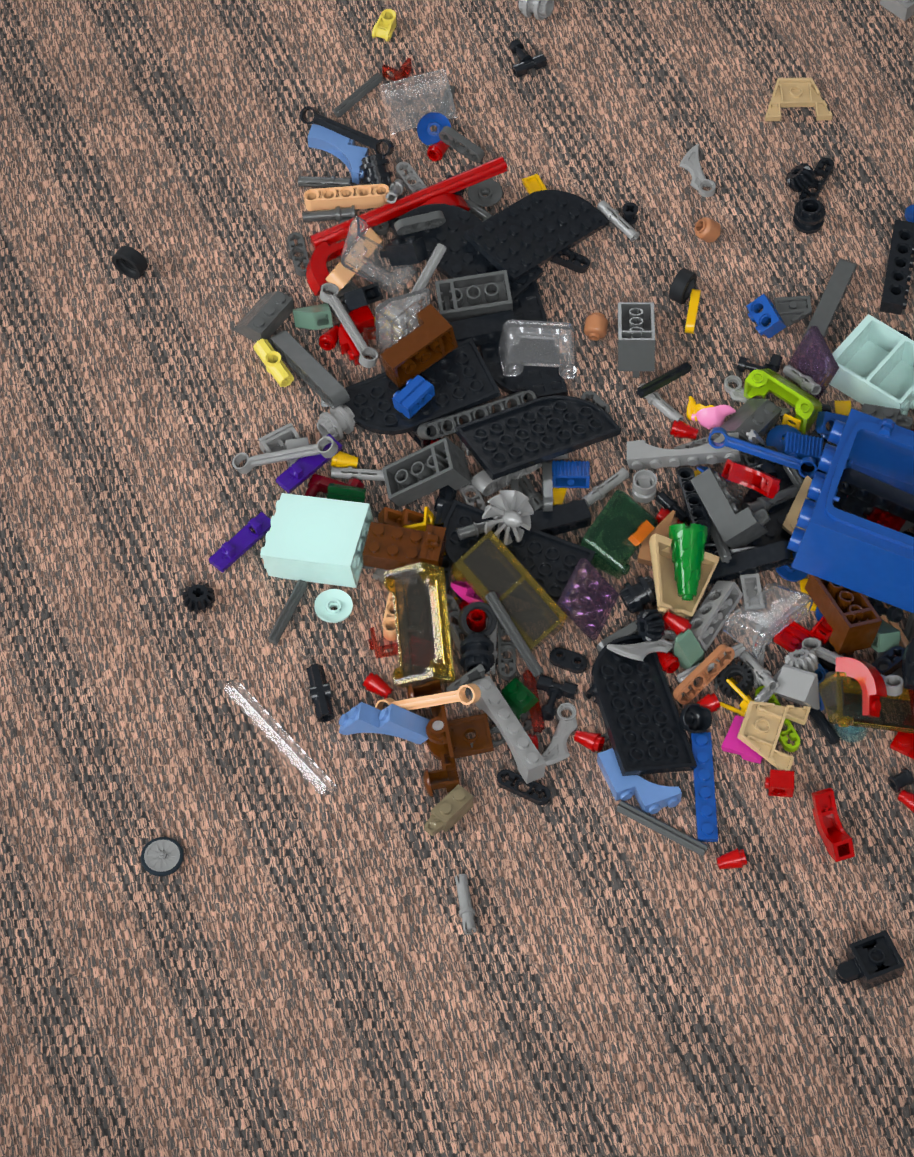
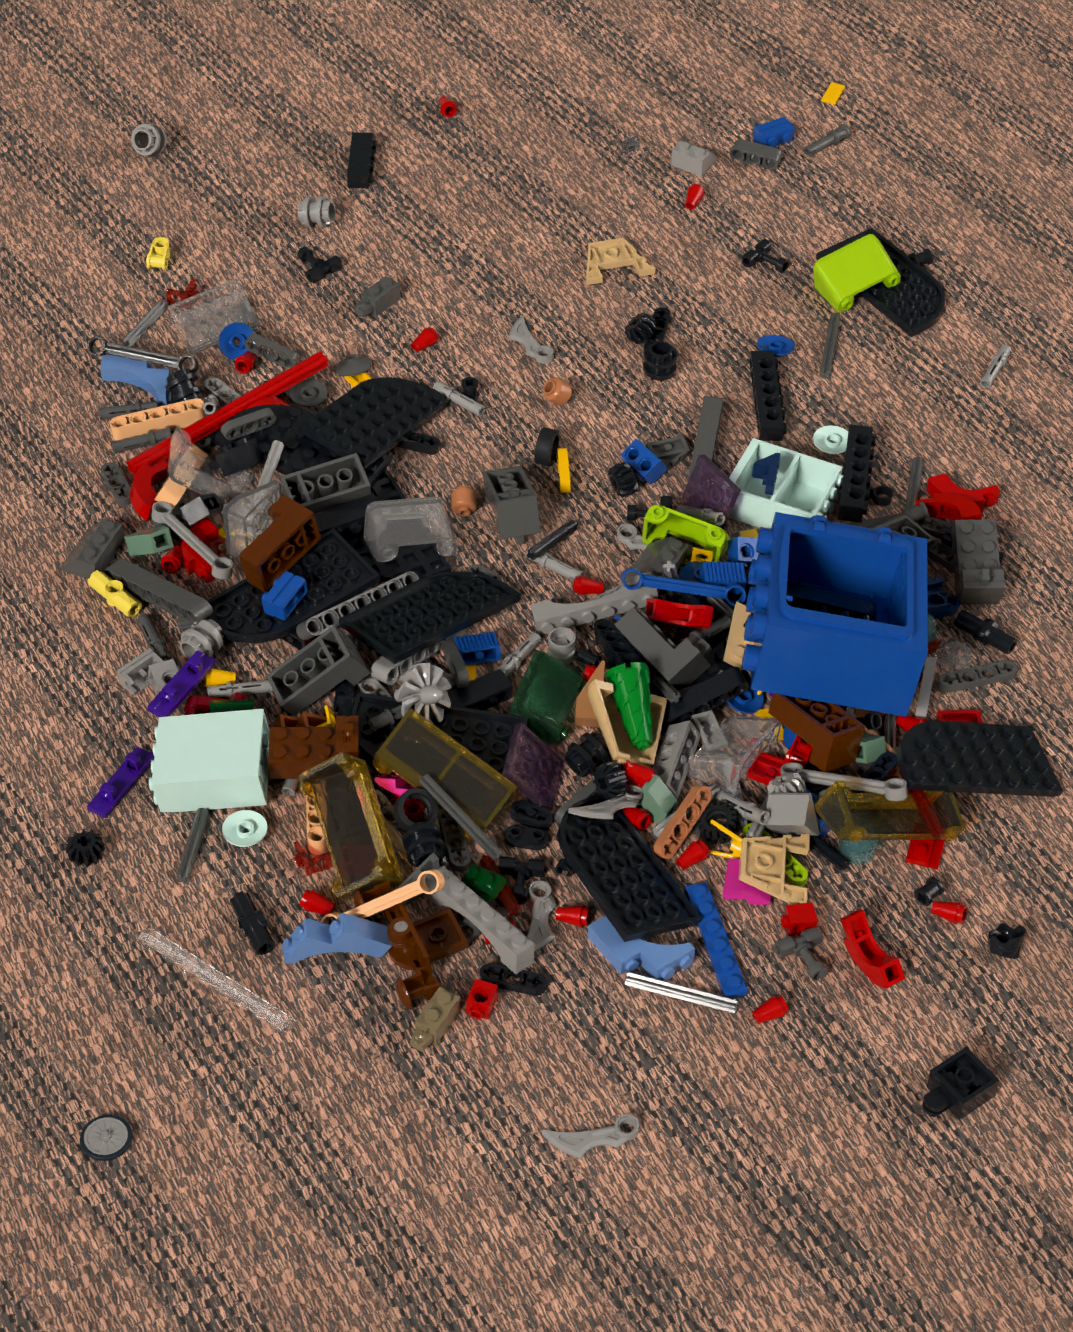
camera: 15 degrees left, 10 degrees down
(284, 455) = (152, 680): light grey piece -> none
(297, 410) = (156, 643): none -> dark grey pin
(466, 911) = (484, 1126): light grey pin -> none
(492, 793) = (483, 992): none -> red brick
(532, 171) = (353, 365): none -> dark grey dish
(541, 942) = (578, 1143): none -> light grey piece
(570, 104) = (378, 297): none -> dark grey hinge
(579, 639) = (531, 815): none -> black plate
(602, 155) = (425, 339): none -> red cone
(642, 532) = (574, 689): orange piece -> none
(695, 718) = (687, 868): black hair -> none
(708, 416) = (609, 565): bright pink hair -> none
(742, 331) = (623, 479): none -> black gear
(776, 808) = (801, 947): none -> dark grey bar
(870, 351) = (767, 470): none -> dark blue slope
(870, 681) = (871, 787): arch -> none
(891, 41) = (694, 195): none -> red cone

